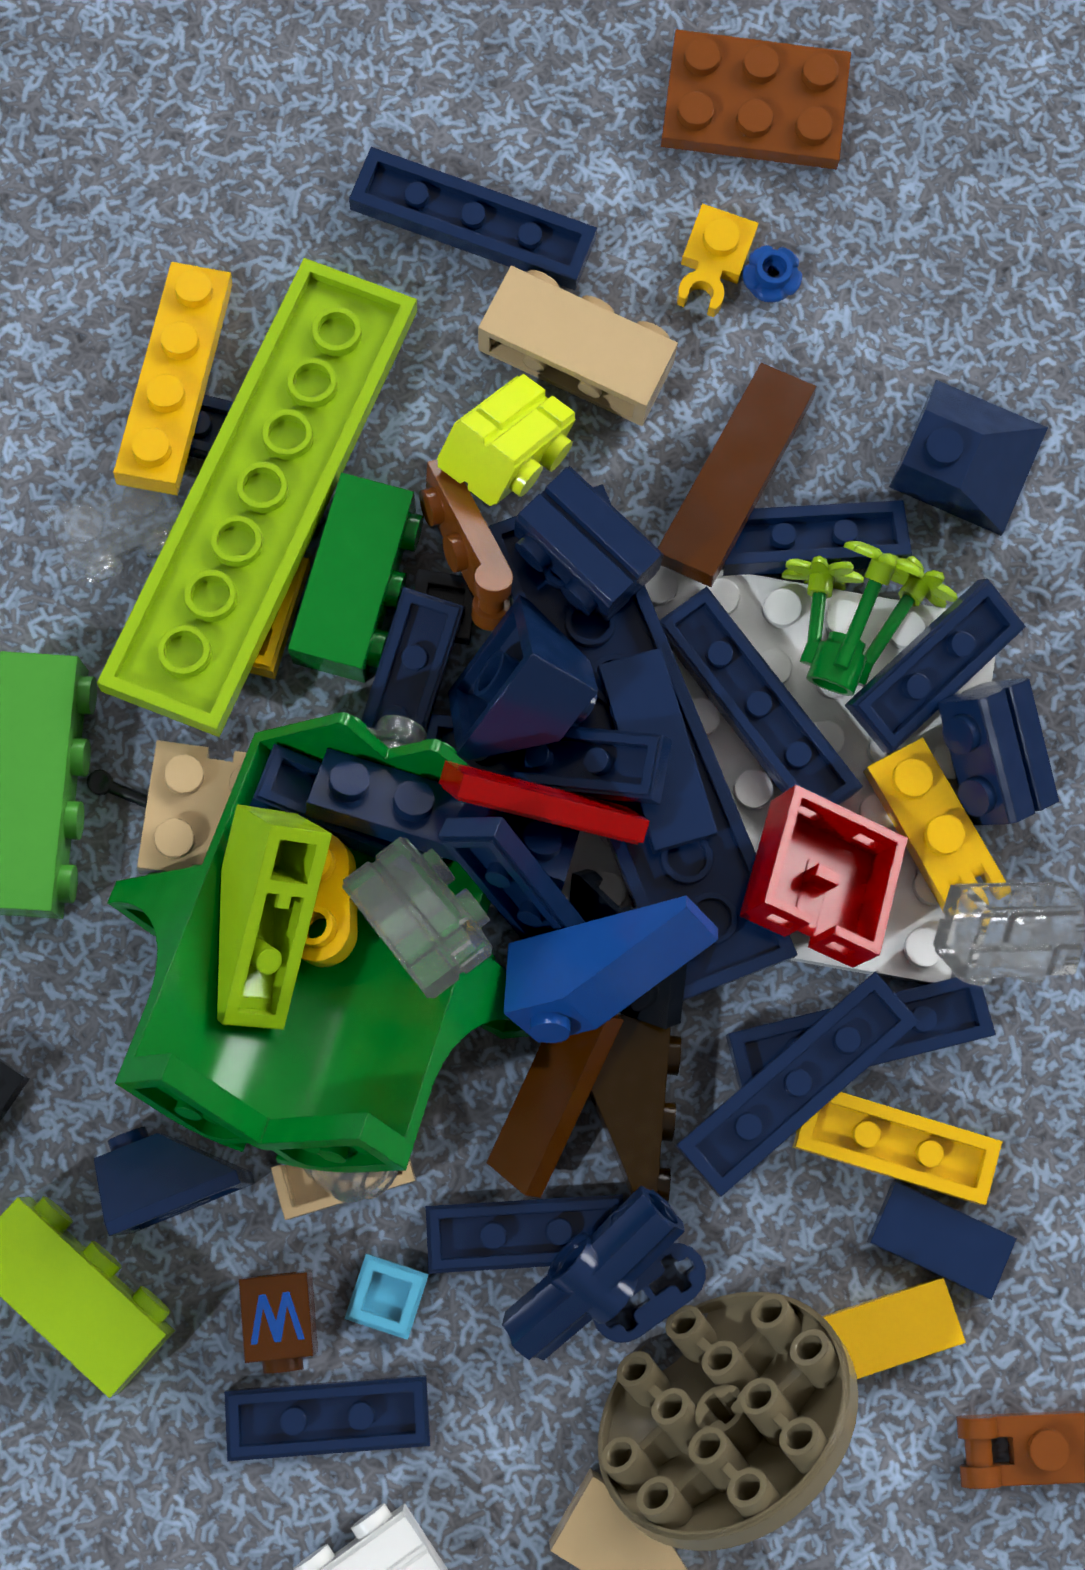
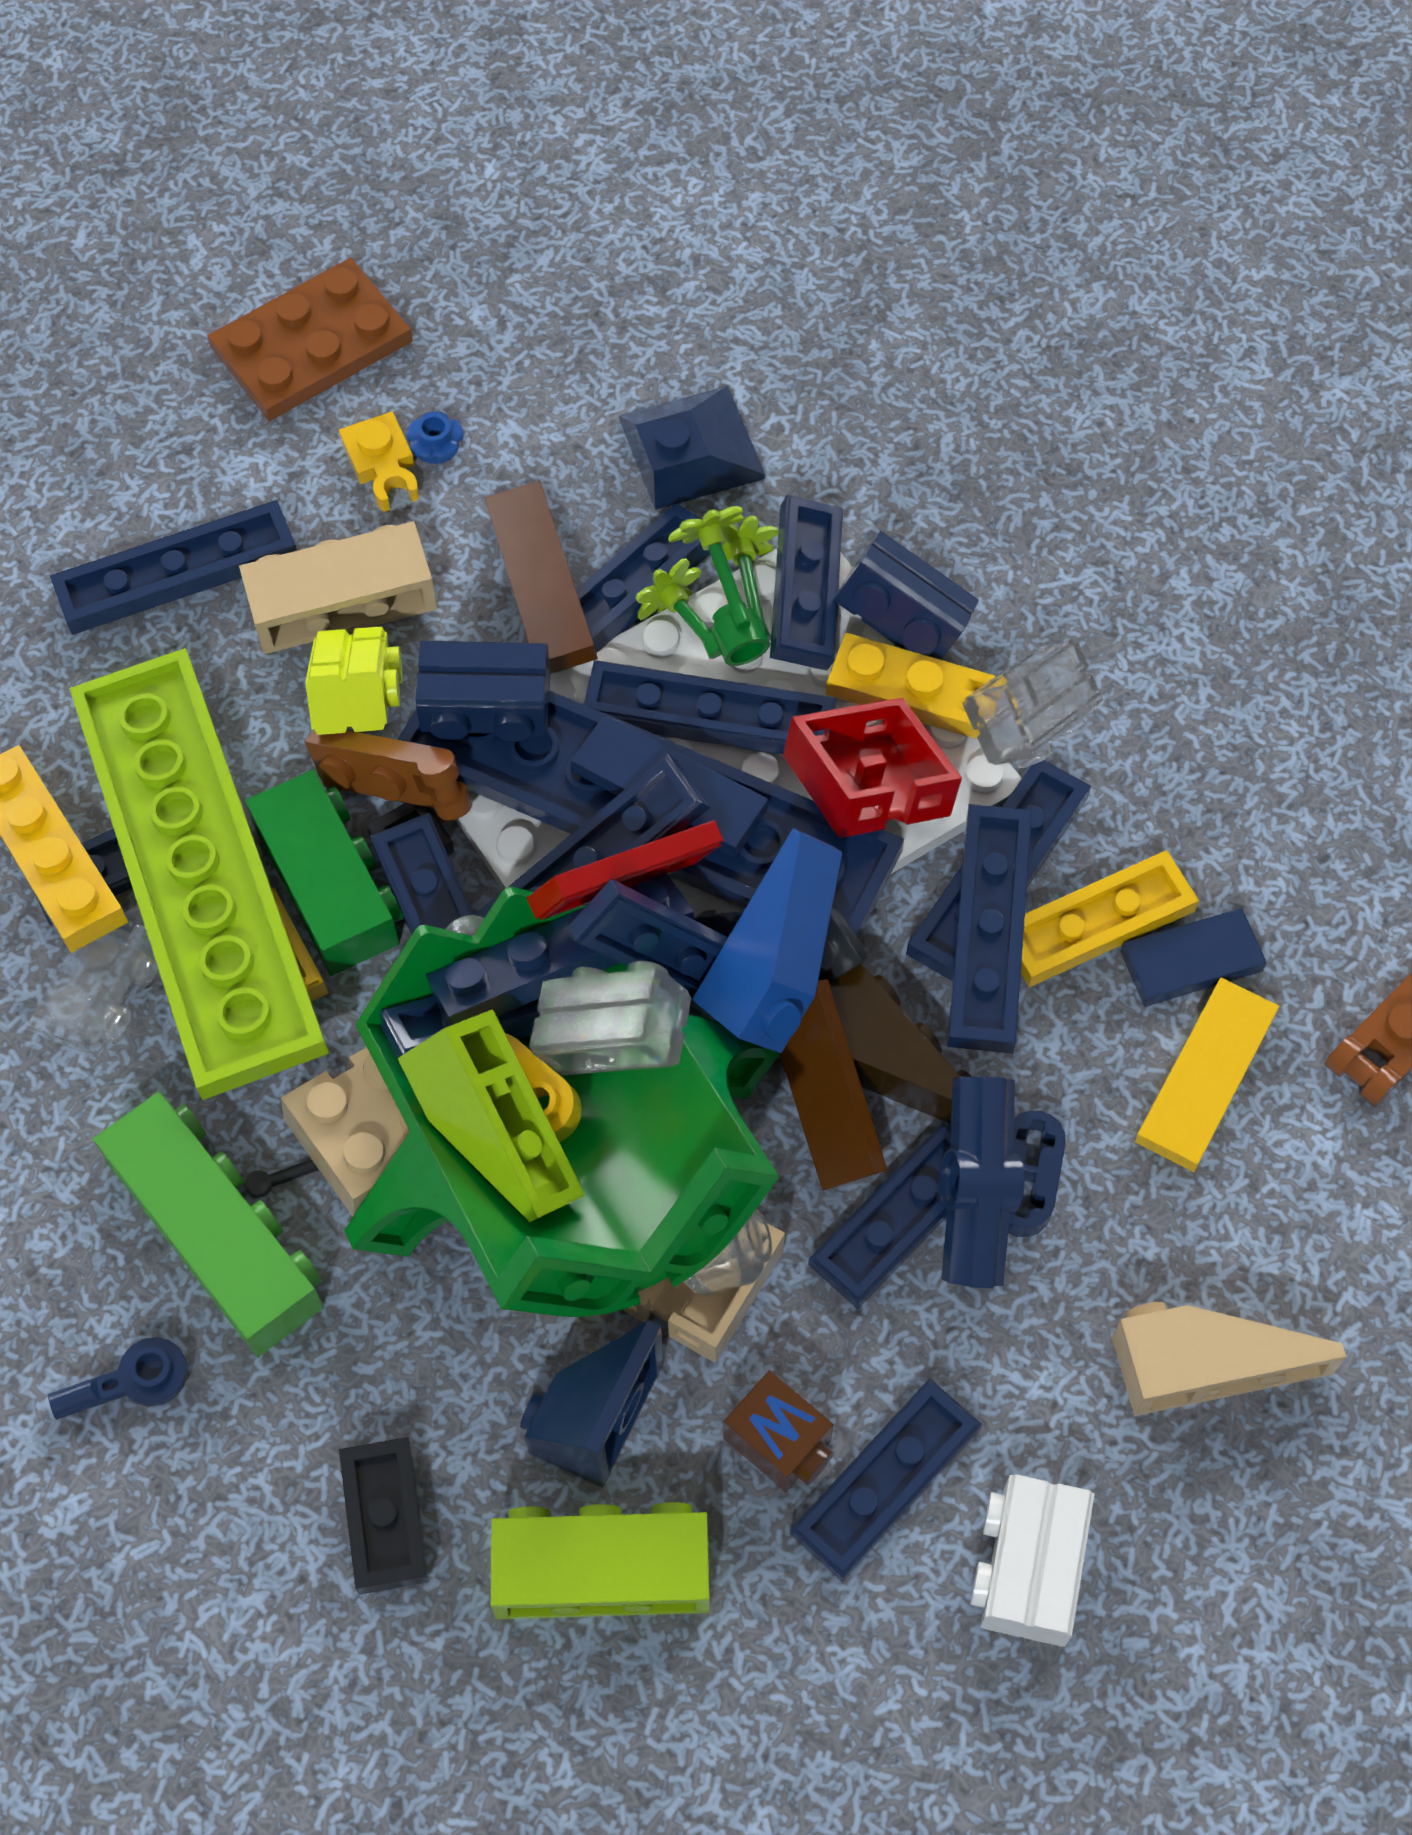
camera: 35 degrees left, 15 degrees down
(386, 1296) = (843, 1351): medium azure tile -> none
(520, 687) = (526, 821): dark blue slope -> none
(734, 1427) = (1182, 1181): dark tan bracket -> none

